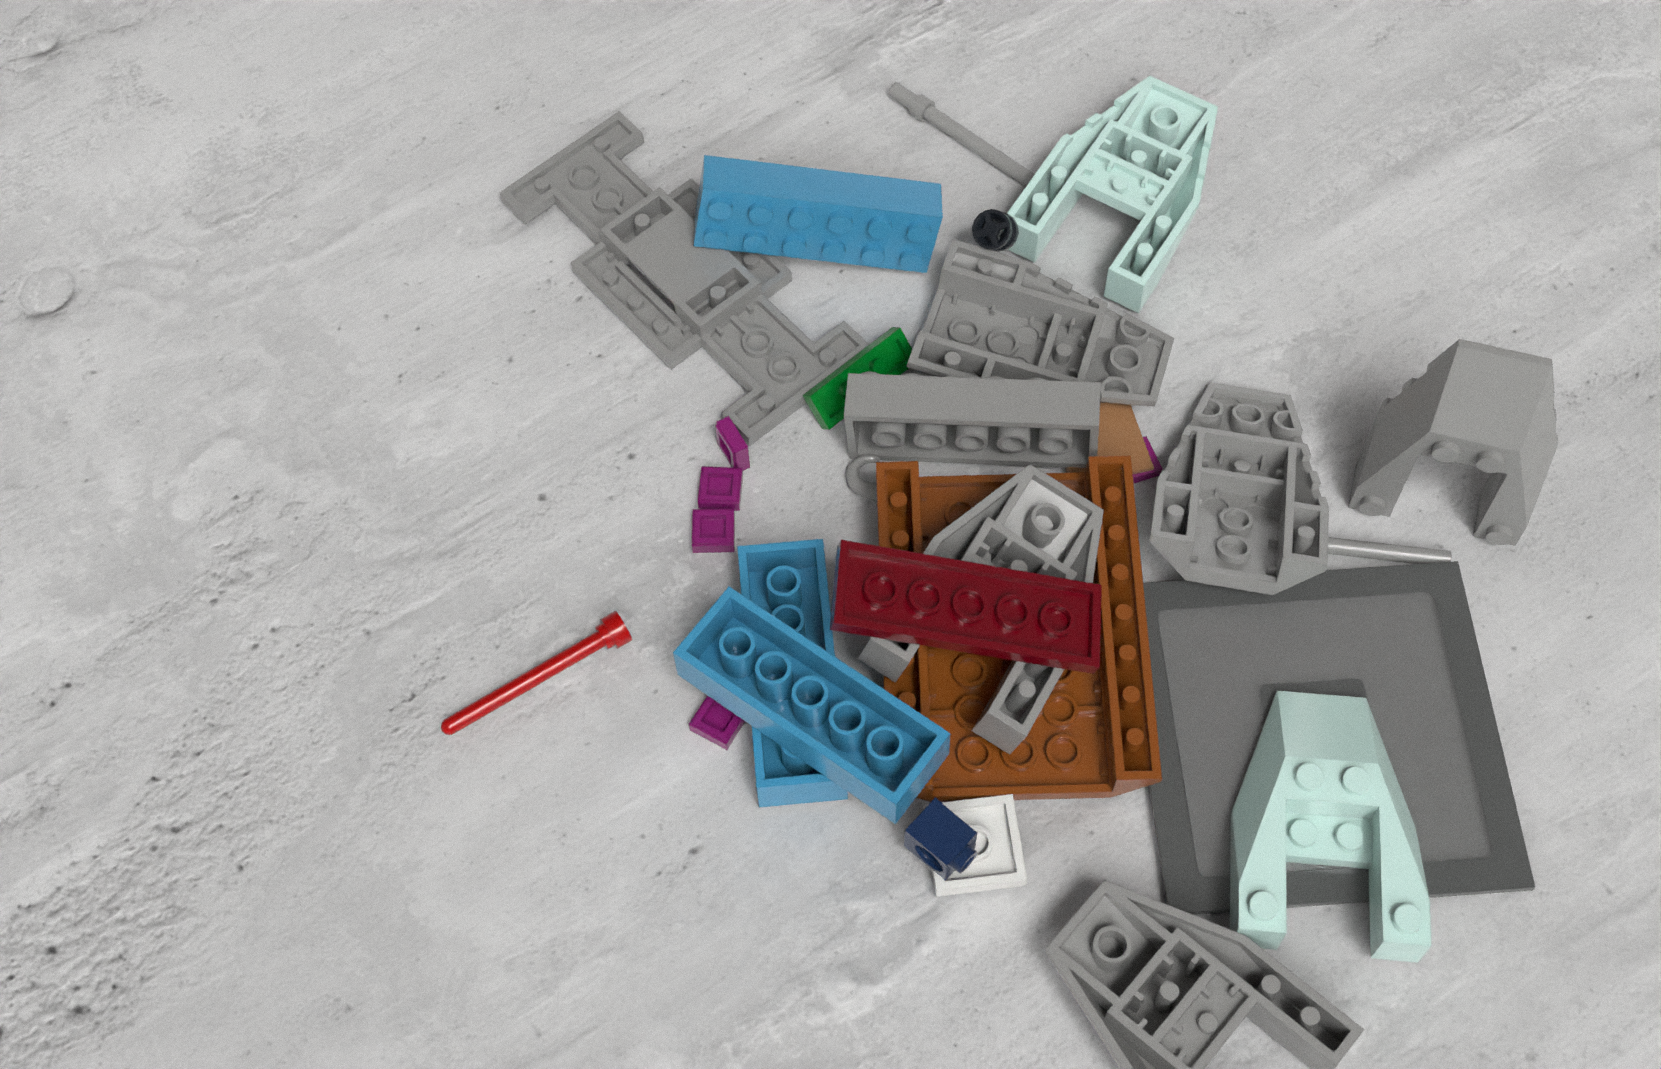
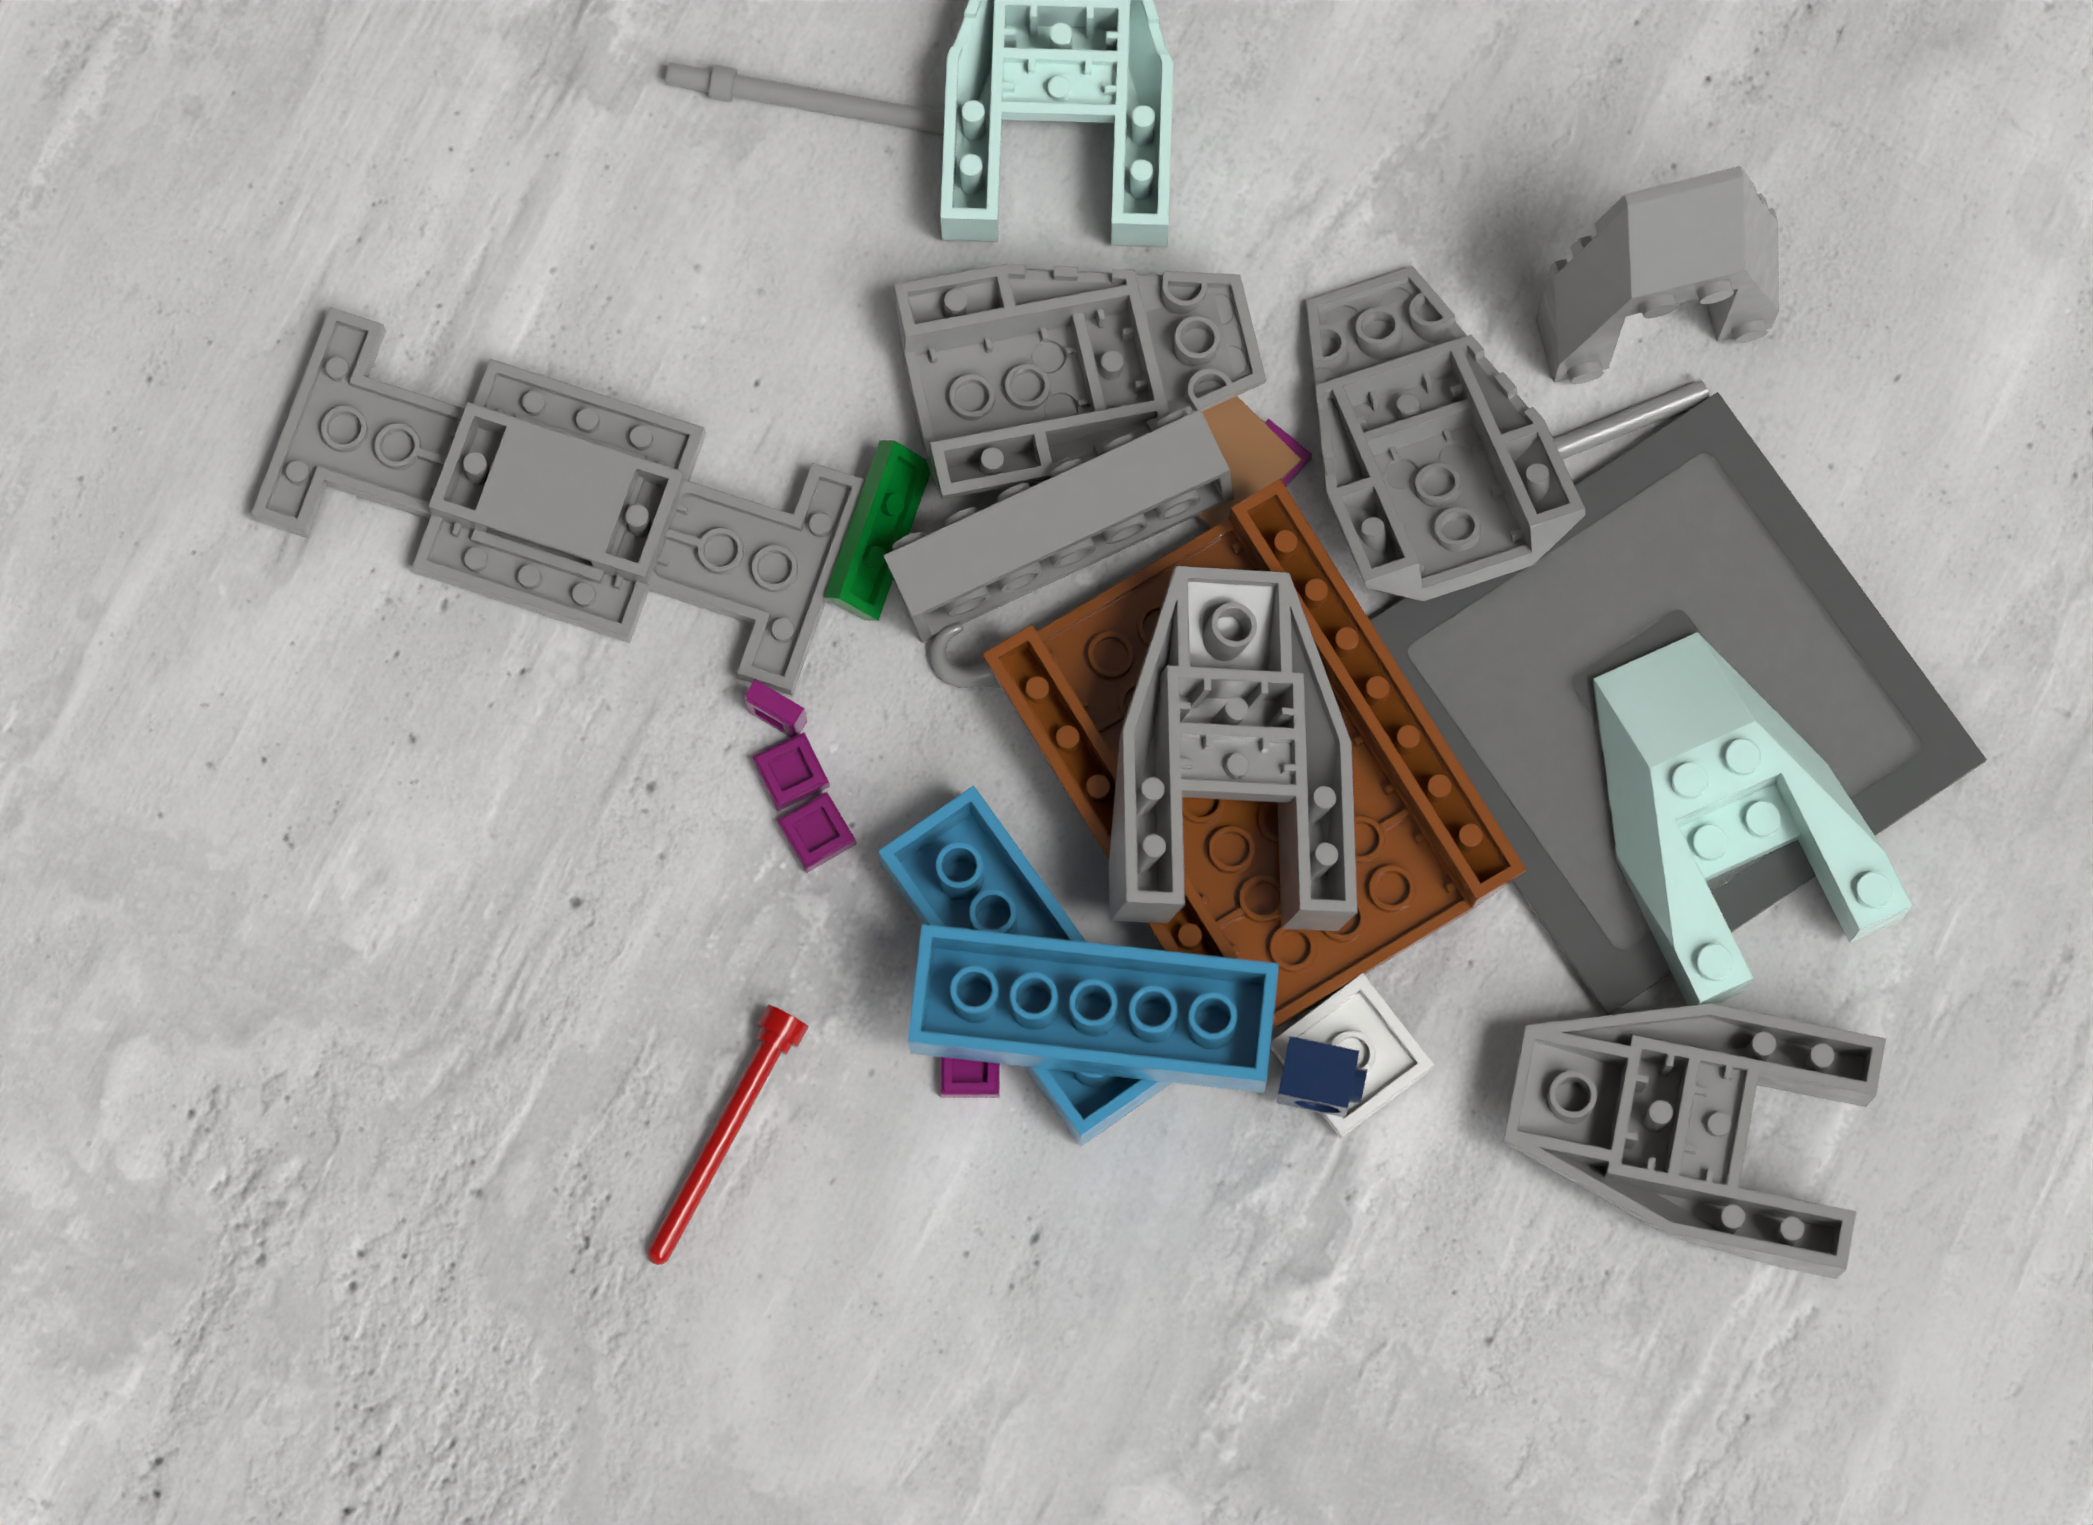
camera: 30 degrees left, 15 degrees up
(817, 214) = (704, 344): dark azure brick -> none
(966, 607) = (1212, 800): dark red plate -> none
(986, 230) = (934, 254): black wheel -> none

